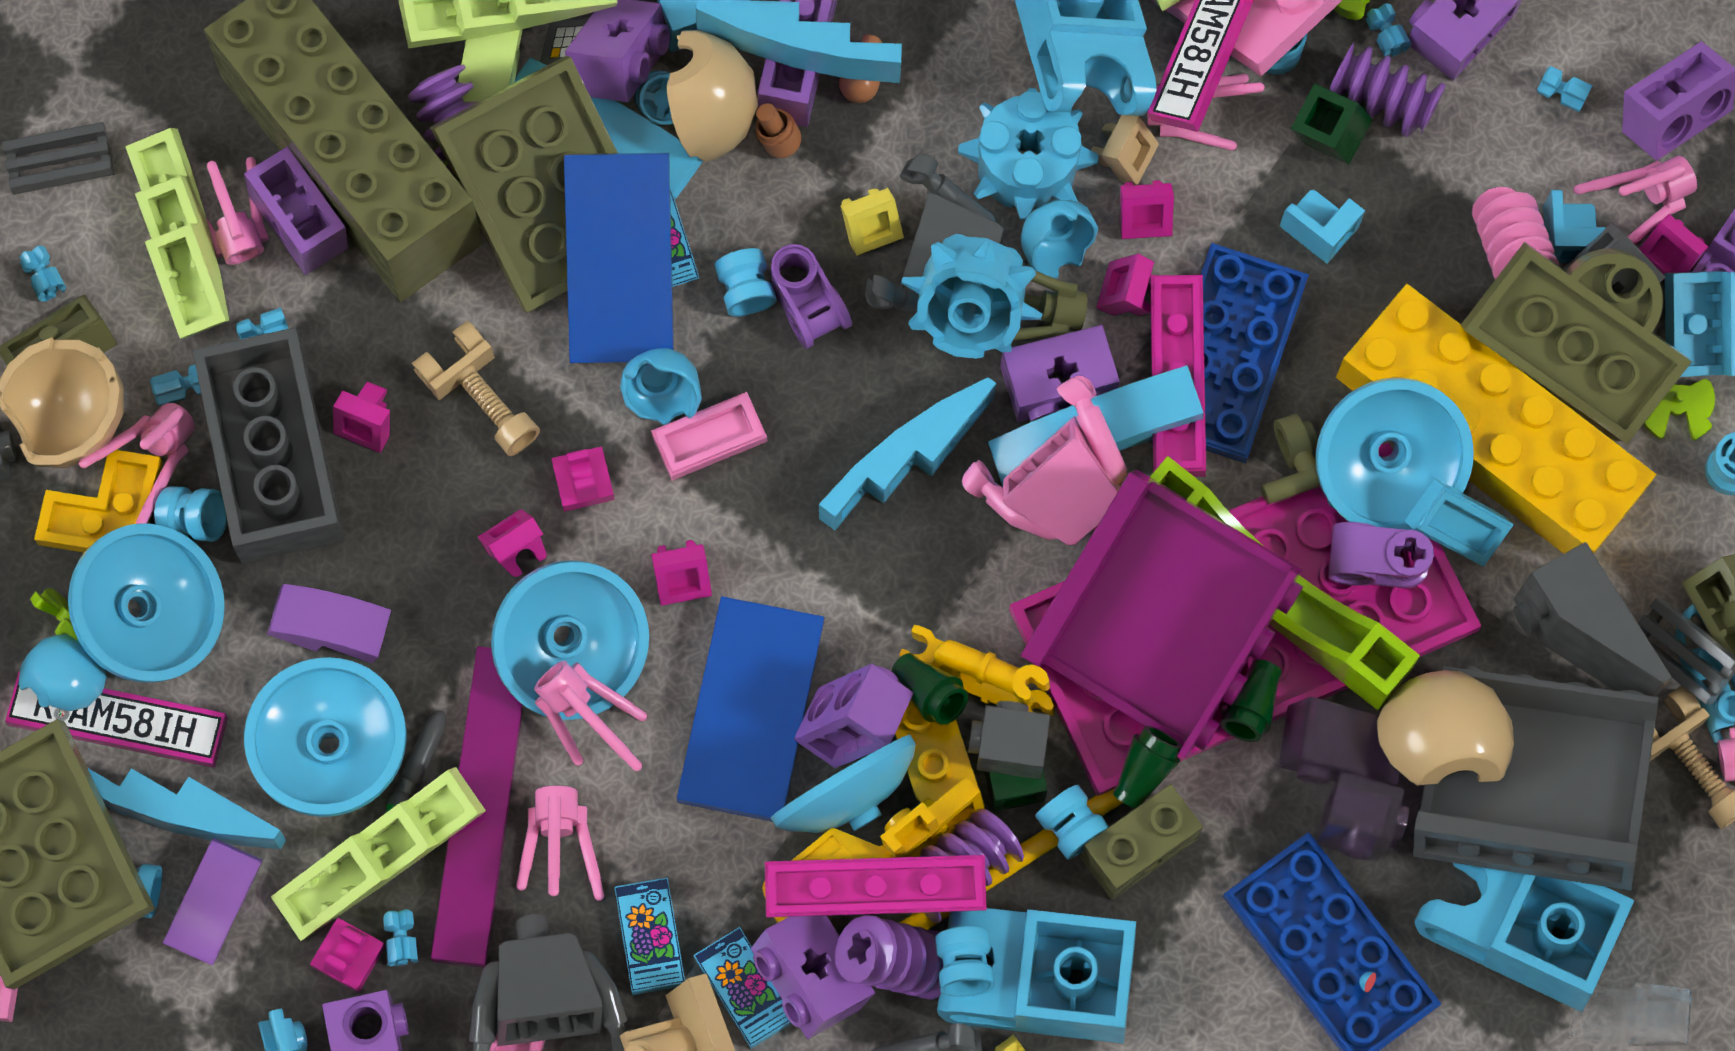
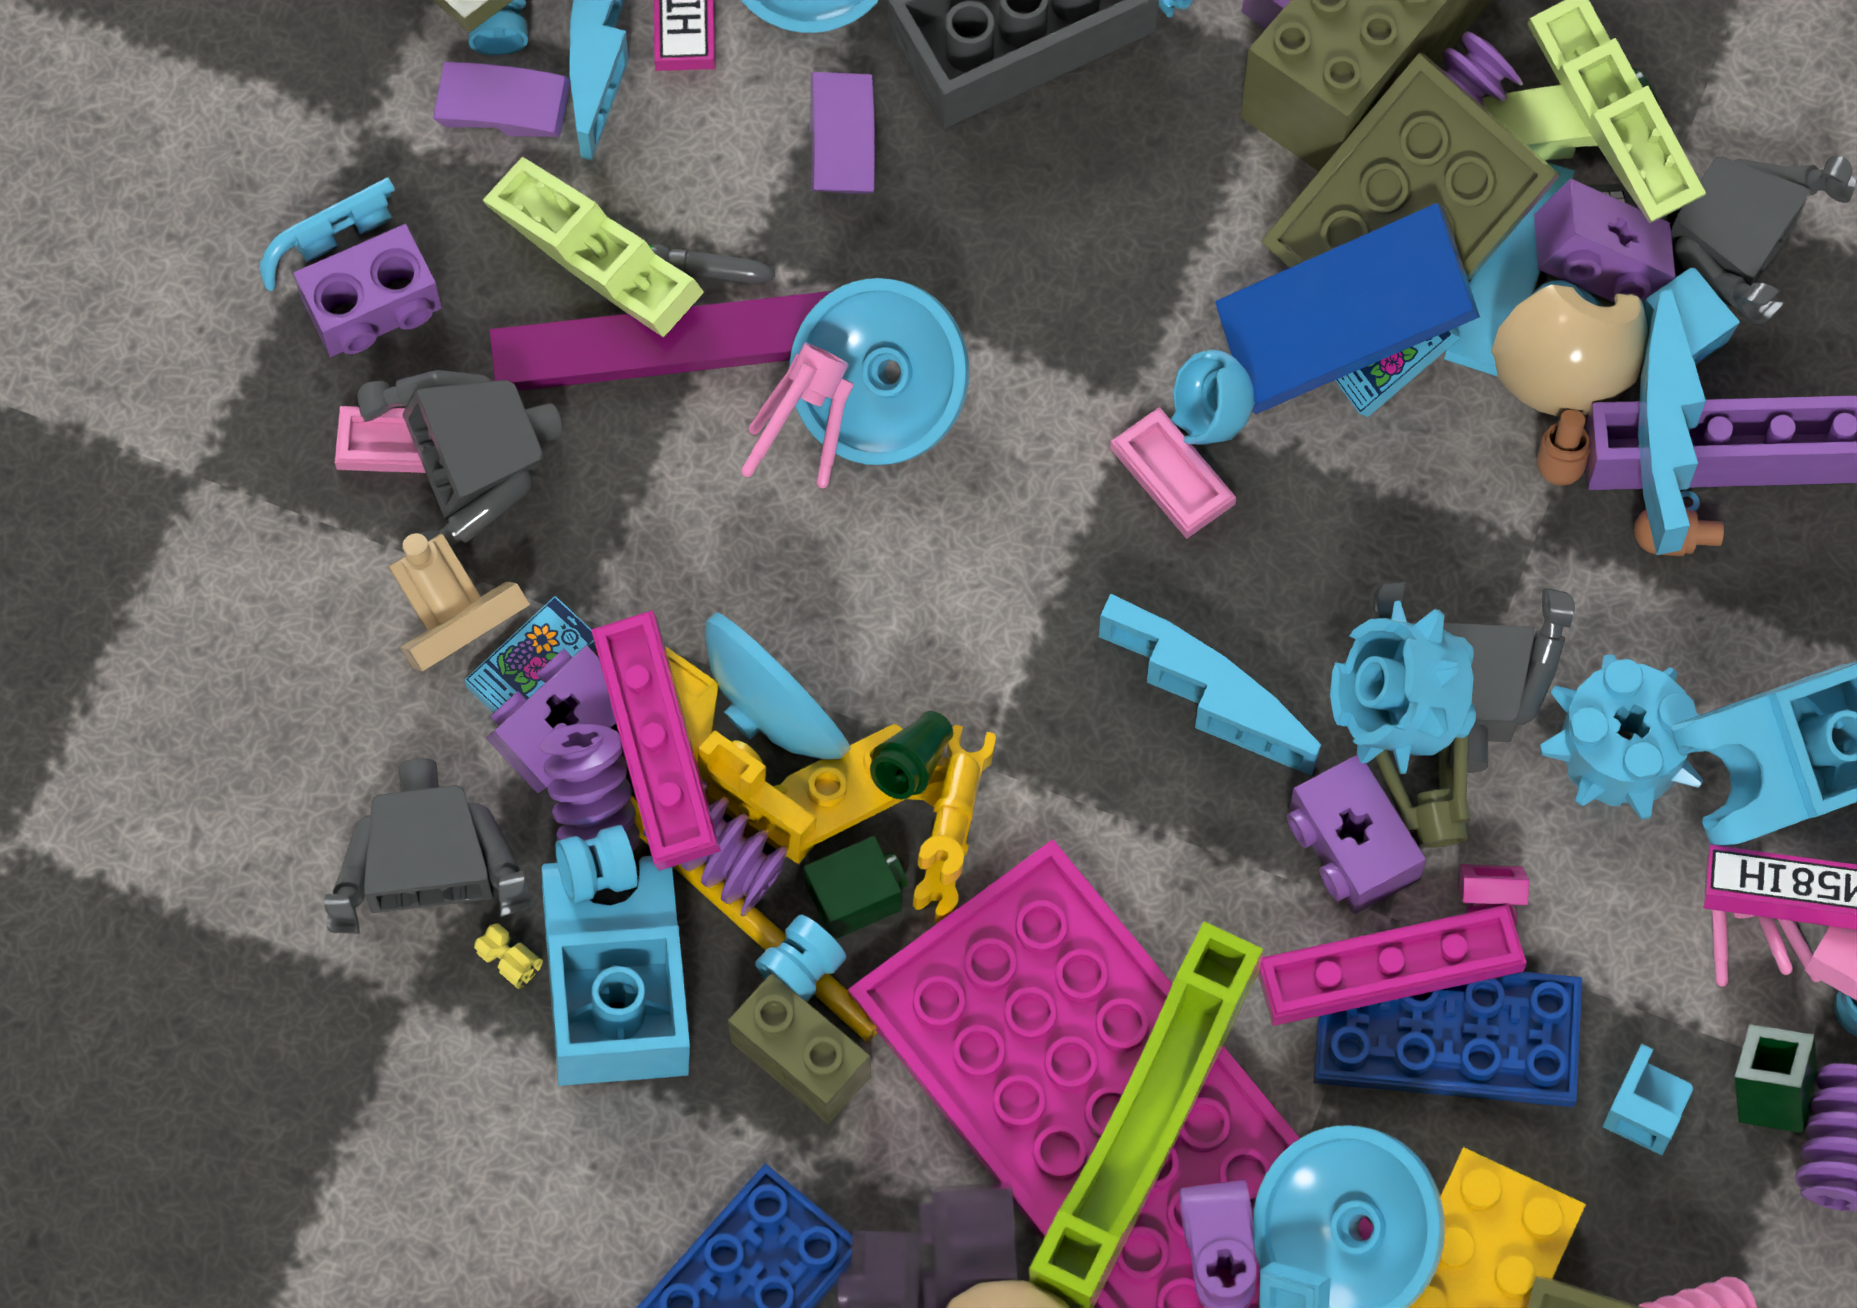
camera: 80 degrees right, 5 degrees down
(319, 702) = (697, 124): medium azure dish -> none
(348, 955) = (476, 249): dark pink tile -> none
(363, 417) = (1090, 106): dark pink tile -> none
(401, 946) = (496, 298): medium azure piece -> none
(510, 537) = (991, 290): dark pink tile -> none
(514, 430) = (1171, 196): tan bar -> none
(556, 814) = (679, 414): bright pink plant -> none
(582, 478) = (1083, 352): dark pink tile -> none
(649, 936) = (569, 548): tile -> none
(681, 573) = (995, 476): dark pink tile -> none
(744, 279) = (1367, 461): medium azure wheel -> none
(750, 709) = (857, 587): blue tile -> none
(810, 304) = (1364, 540): medium lavender piece -> none
(854, 715) = (865, 685): medium lavender brick -> none
(871, 221) = (1486, 581): light yellow tile -> none
(1010, 740) = (872, 857): dark grey brick -> none
(1057, 236) = (1527, 789): medium azure hair -> none
(1063, 483) = (1216, 862): bright pink torso -> none
(1128, 148) = (1670, 852): tan tile -> none
(1129, 411) = (1298, 888): medium azure slope -> none
(1146, 210) = (1598, 888): dark pink tile -> none
(1147, 764) = (890, 1026): dark green cone -> none
(1164, 611) = (1074, 989): magenta panel -> none
(1254, 705) = (998, 1133): dark green cone -> none
(1296, 444) = (1358, 1112): olive plate -> none

